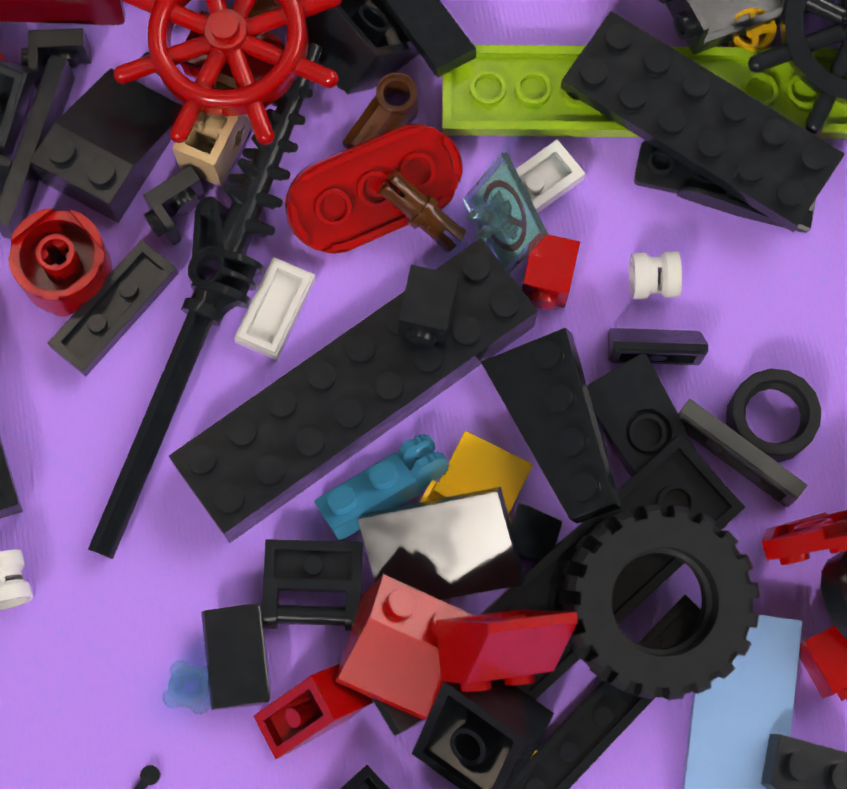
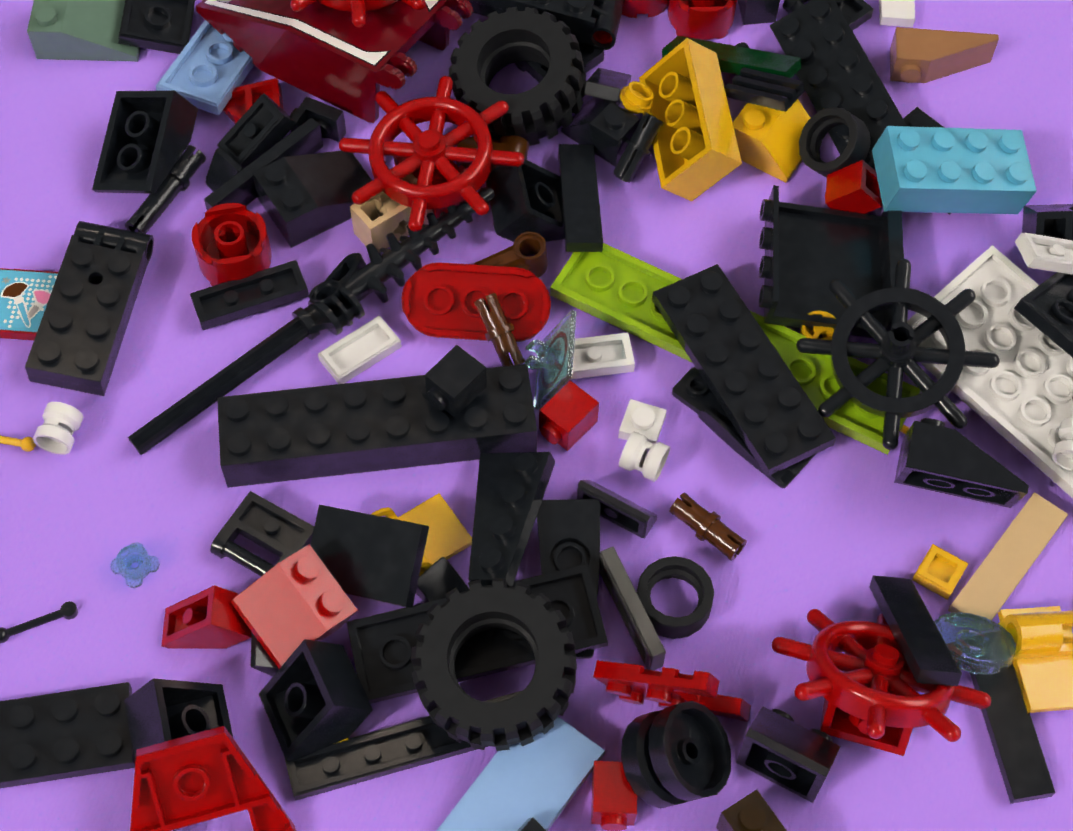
camera: 30 degrees right, 15 degrees down
(174, 196) = (332, 245): black bracket -> none
(235, 656) = (177, 559): black slope -> none
(382, 485) = (356, 496): dark azure hinge -> none
(502, 646) = (359, 632): red slope -> none
(626, 234) = (642, 419): none -> white plate
(761, 318) = (708, 526): none -> reddish brown pin

